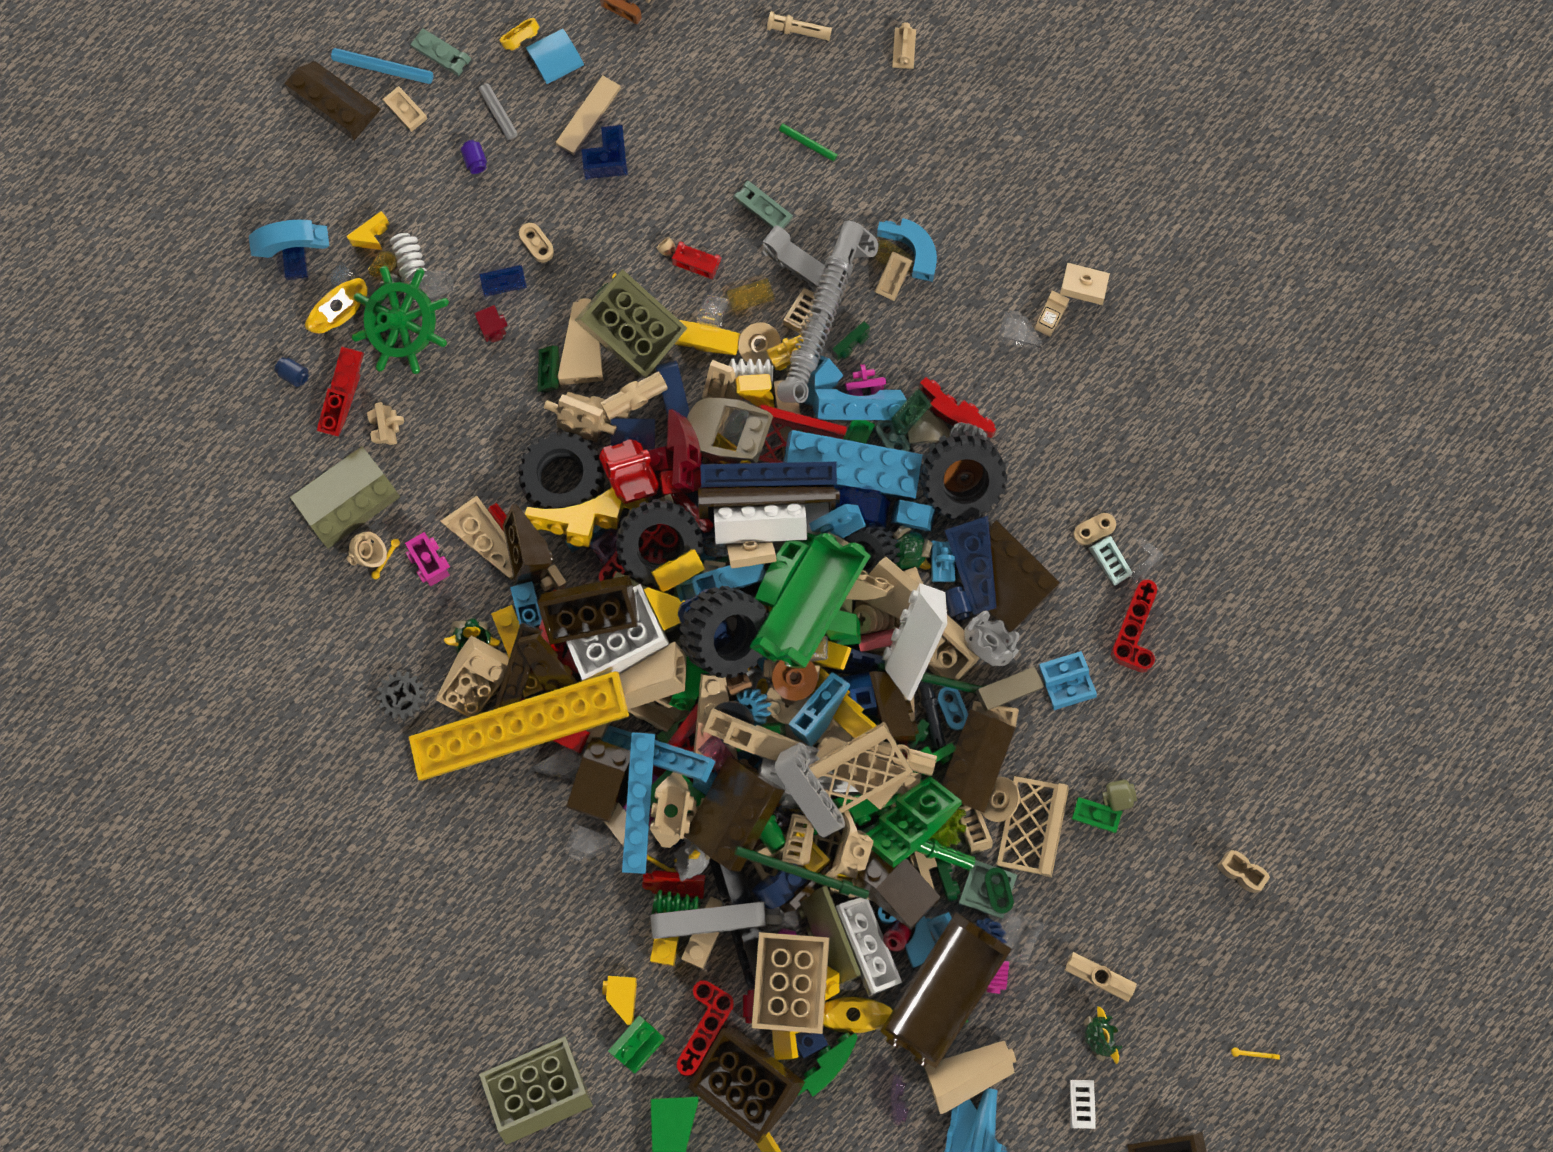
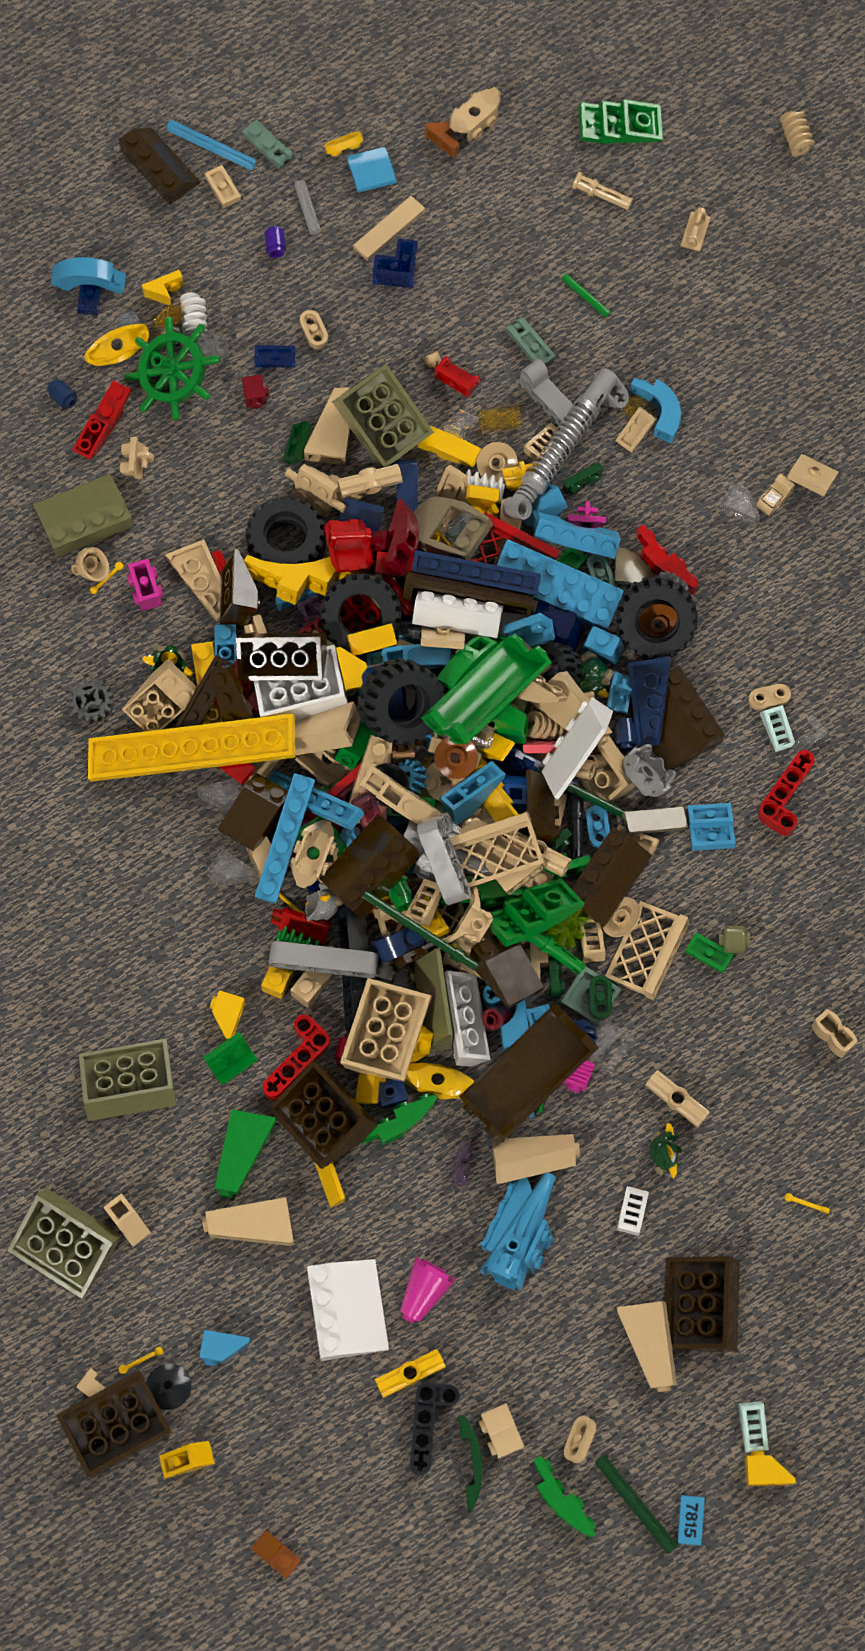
camera: 10 degrees right, 5 degrees down
(910, 412) = (621, 551): clear green slope -> none

